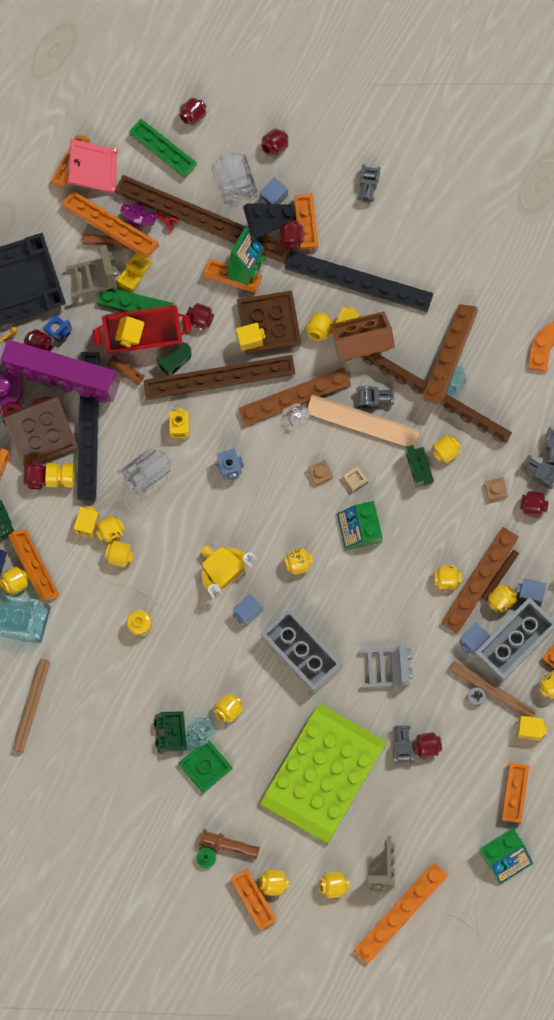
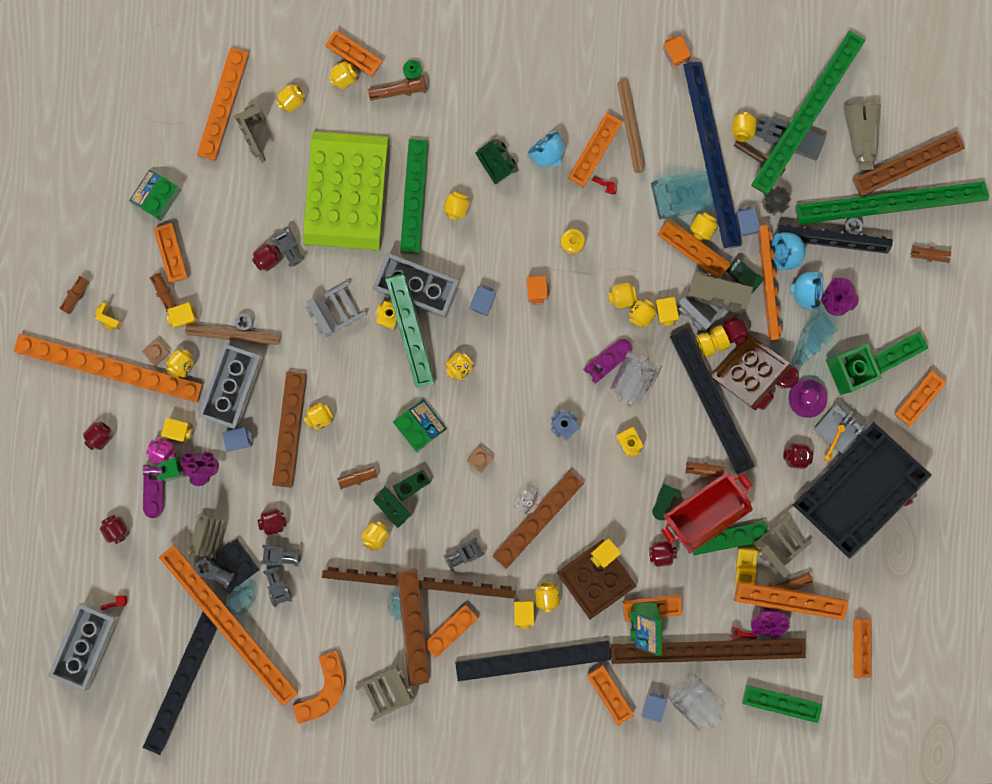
camera: 155 degrees right, 10 degrees up
(31, 512) = (719, 293): none -> dark tan wedge
(60, 371) = (765, 433): magenta brick -> none
(61, 508) = (697, 314): none -> light grey plate
(62, 332) = (781, 476): blue bracket -> none
(75, 698) = (595, 150): none -> orange plate
(78, 658) = (611, 187): none -> red hand
(96, 166) = (834, 652): coral container -> none
(119, 717) = (548, 151): none -> medium azure cylinder
(129, 331) = (717, 500): yellow brick -> none
(160, 505) = (608, 359): none -> magenta plate
(192, 111) = (772, 754): dark red head -> none
(193, 596) = (536, 289): none -> orange brick
(200, 731) = (470, 173): clear light blue head -> none
(205, 766) = (452, 148): green tile -> none
(219, 377) = (615, 504): reddish brown plate -> none
(223, 567) = (523, 327): yellow torso -> none
(263, 738) = (413, 196): none -> green plate
(266, 218) = (646, 677): black wing -> none
(274, 142) = (678, 760): dark red head -> none
(291, 234) = (615, 672): dark red head -> none
(326, 610) = (410, 330): none -> plate
(342, 631) = (384, 320): none -> yellow brick
(355, 478) = (445, 469): tan tile -> none
(362, 336) = (501, 602): dark orange slope -> none
(363, 421) = (463, 525): light nougat tile -> none
(368, 180) = (570, 764): dark grey connector -> none
(392, 477) = (411, 485): none -> dark green leg
(419, 338) = (450, 631): none -> orange plate
(438, 507) = (357, 477): none -> dark orange pin
(473, 639) = (269, 371): sand blue brick -> none
(487, 313) = (395, 679): none -> dark tan plate
(496, 489) = (313, 520): medium nougat plate -> none
(501, 573) = (273, 443): reddish brown bar -> none
(502, 598) = (260, 420): yellow head -> none
(539, 759) = (163, 291): none -> dark orange pin

